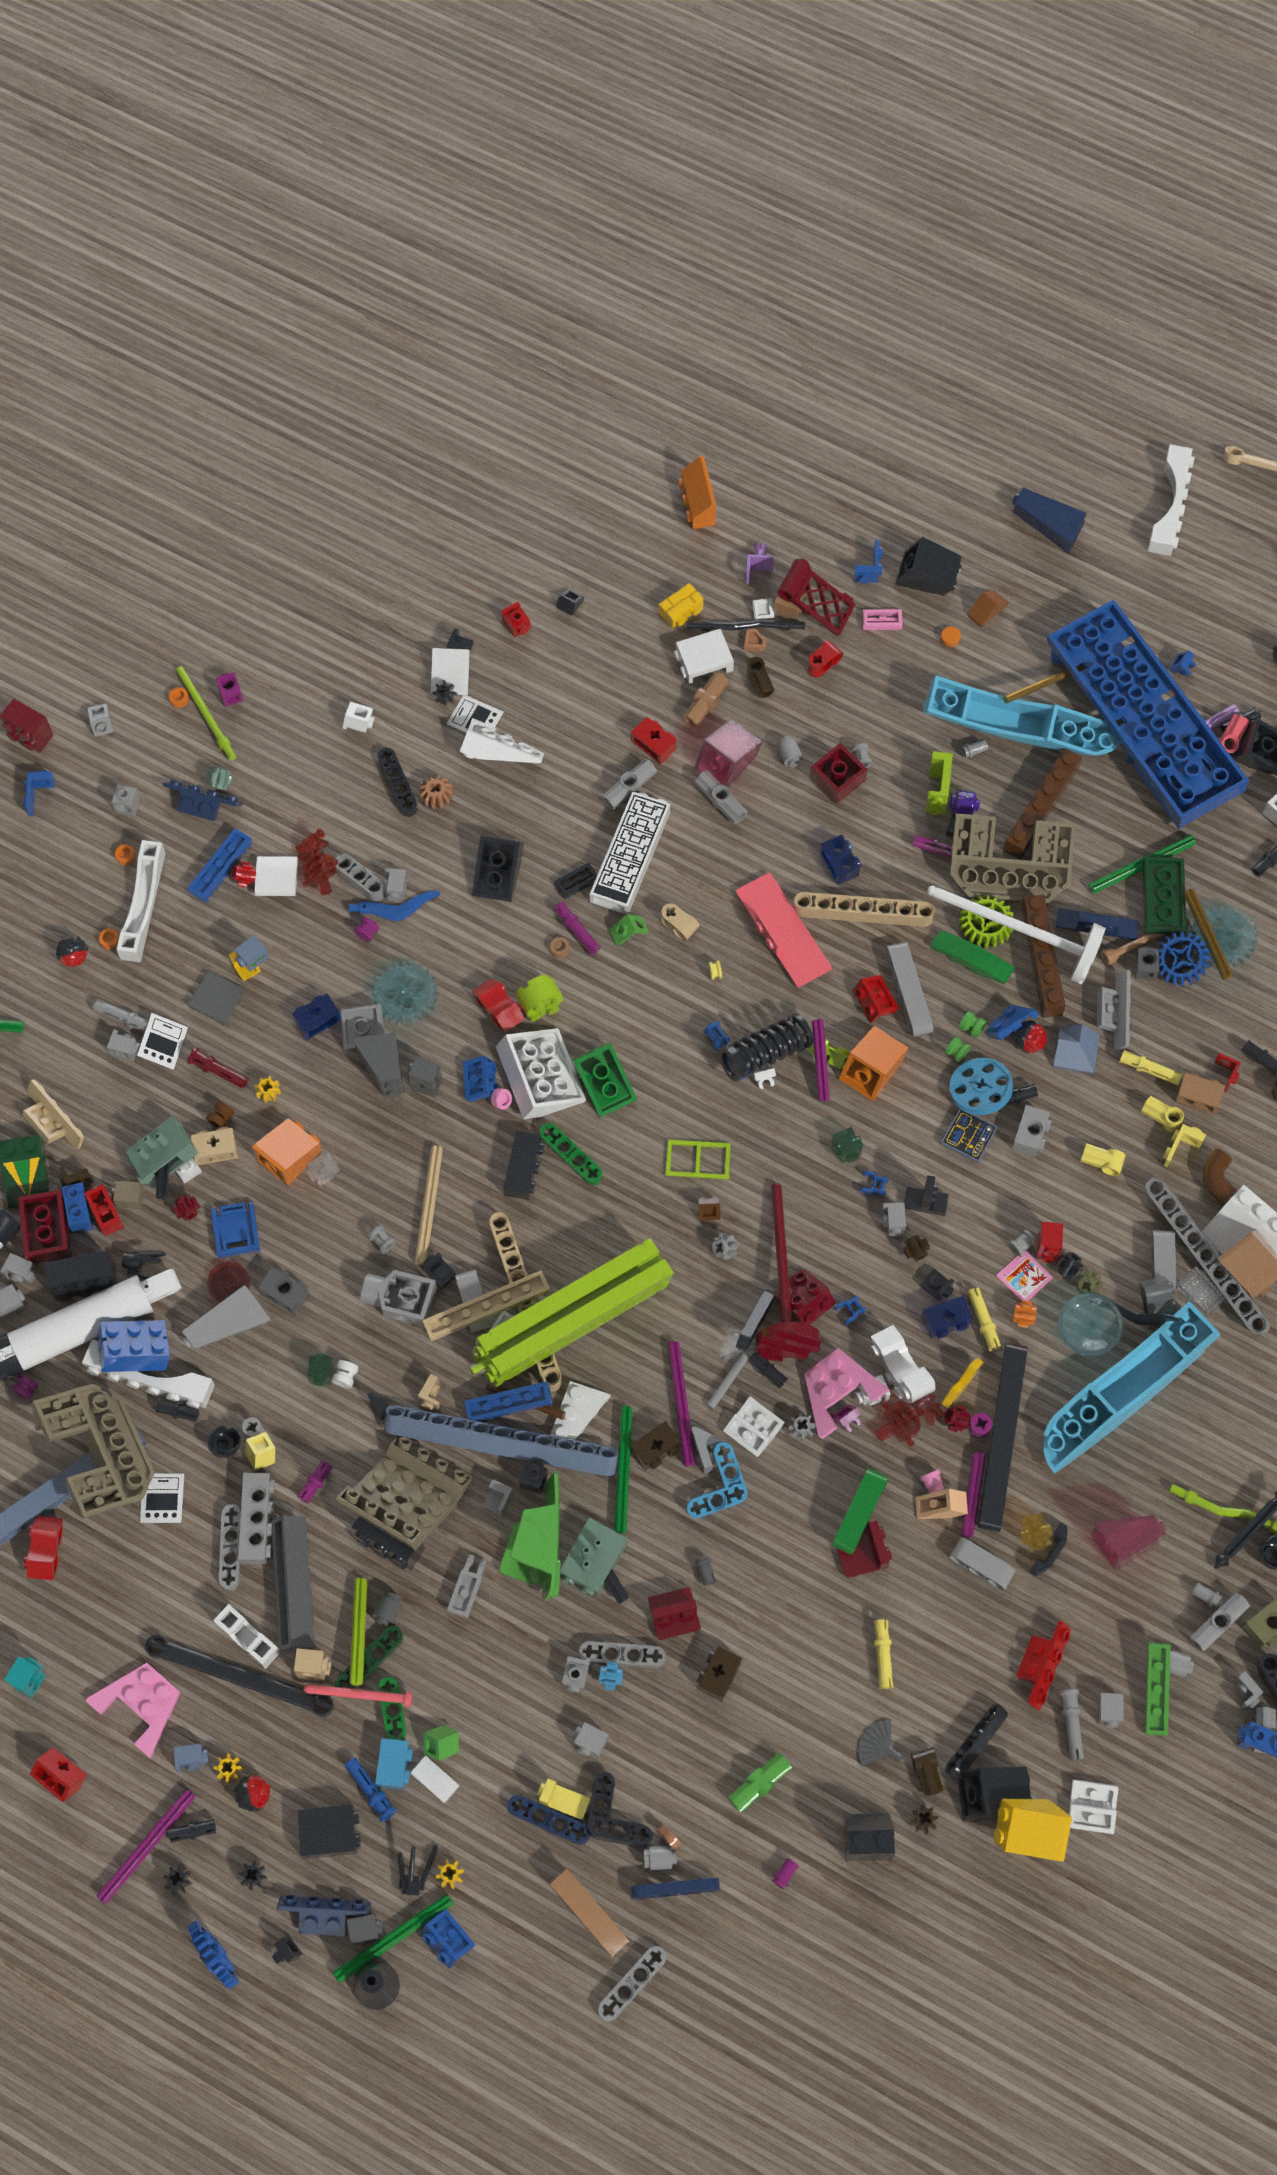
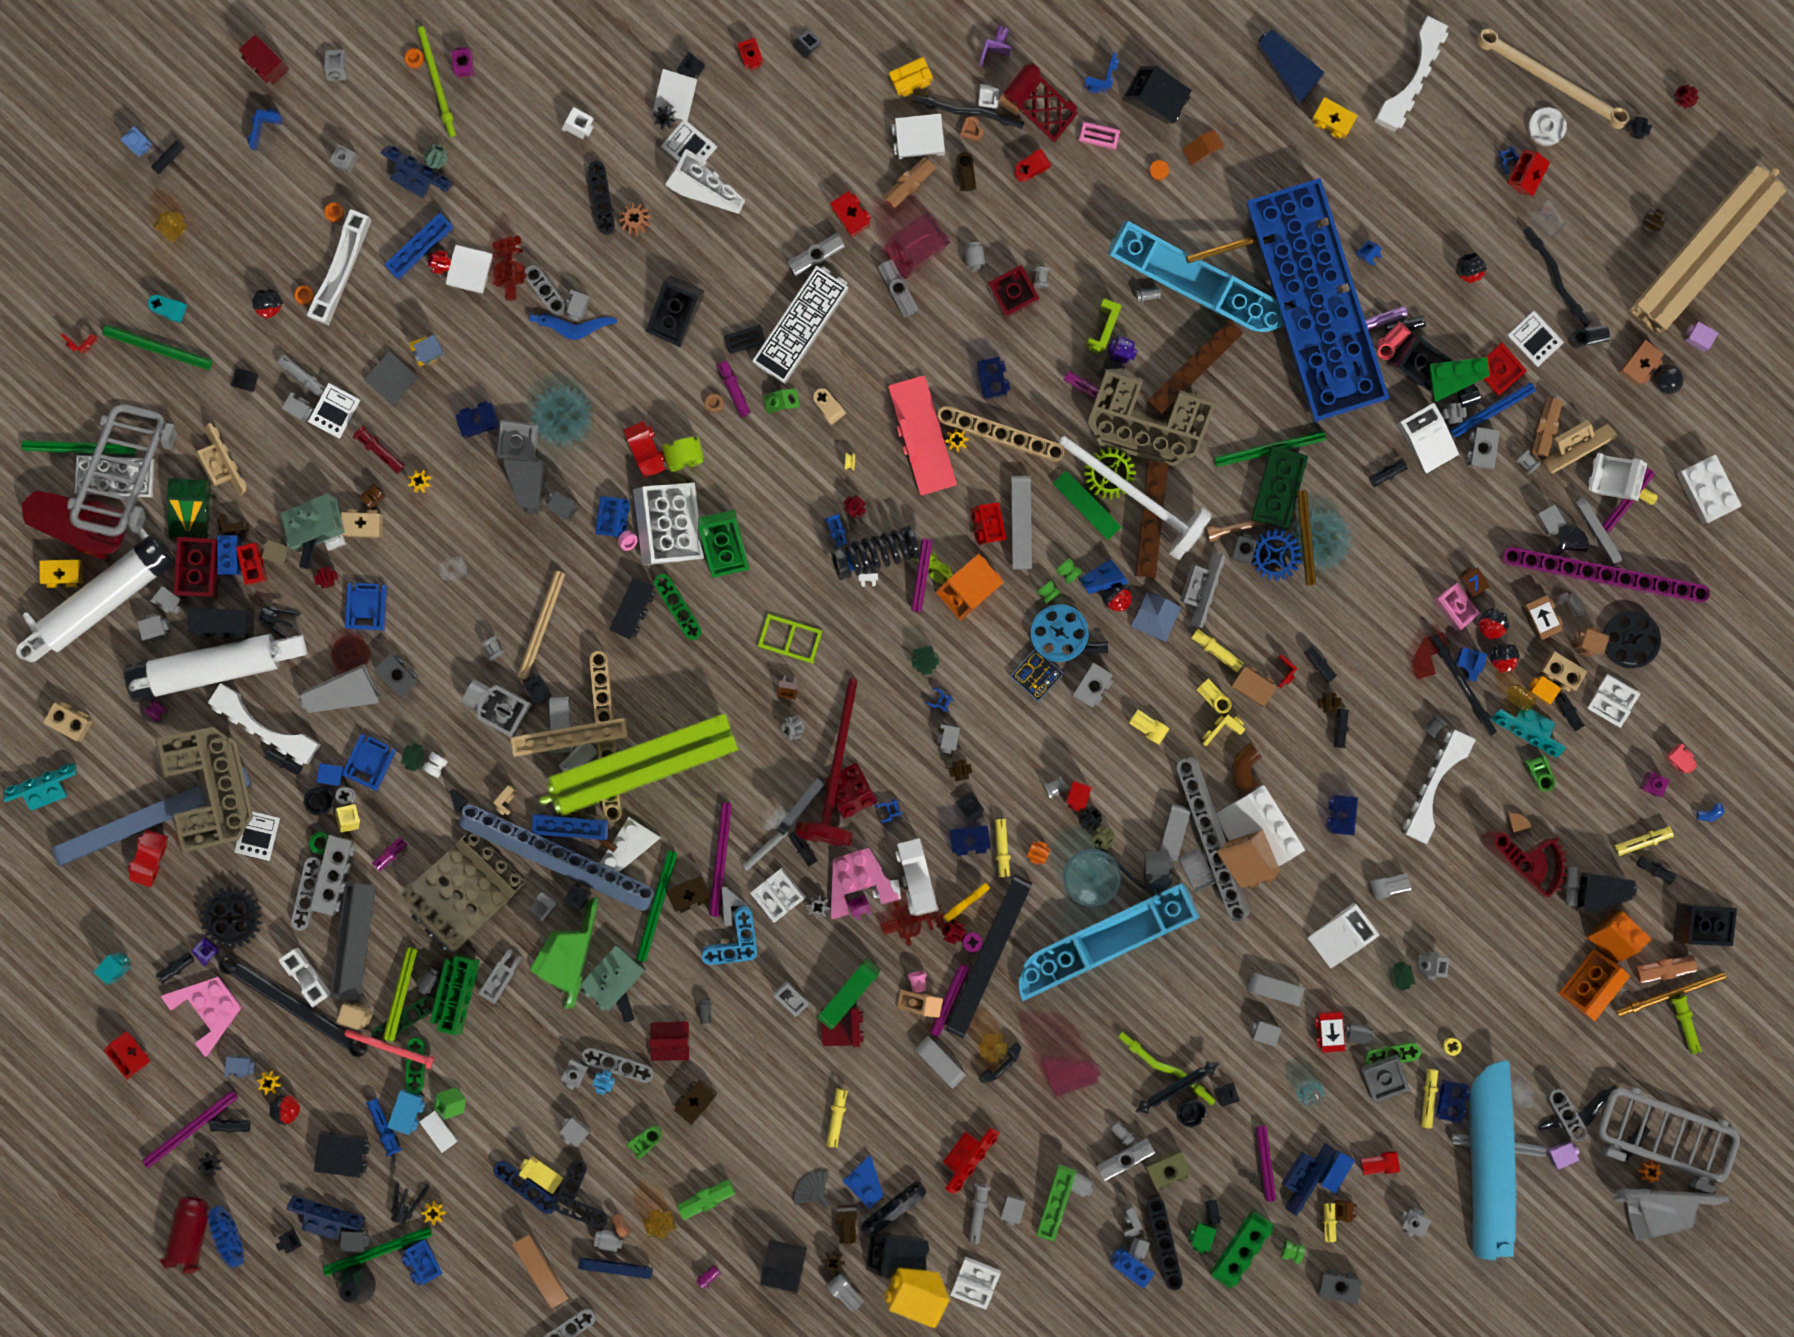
camera: 10 degrees right, 20 degrees up
(61, 1034) = (244, 380): none -> black slope
(96, 1664) = (175, 967): none -> black pin
(126, 1639) = (204, 951): none -> dark purple slope
(133, 1346) = (254, 699): piece -> none
(146, 1572) = (233, 934): none -> black gear
(165, 1968) = (186, 1234): none -> dark red piece
(226, 1485) = (312, 842): none -> green piece
(231, 1409) = (329, 774): none -> blue panel
(259, 1875) = (277, 1171): black gear -> none
(272, 1386) = (370, 758): none -> blue container
(287, 1150) = (425, 545): orange slope -> none
(366, 929) = (540, 344): magenta wheel -> none
(420, 1615) = (454, 994): none -> green brick
(672, 1733) = (642, 1143): none -> bright green piece
(713, 1821) = (659, 1223): none -> clear yellow brick
(731, 1011) = (854, 506): none -> dark red gear
(797, 1532) = (791, 999): none -> light grey slope
(820, 925) = (960, 436): none -> yellow gear
(926, 1199) = (981, 726): black bracket -> none
(935, 1721) = (865, 1183): none -> blue wing
(941, 1849) = (842, 1289): none -> light grey piece
(1024, 1276) = (1049, 816): sticker -> none
(1083, 922) = (1207, 497): dark blue bracket -> none
(1108, 553) = (1343, 121): none -> yellow brick

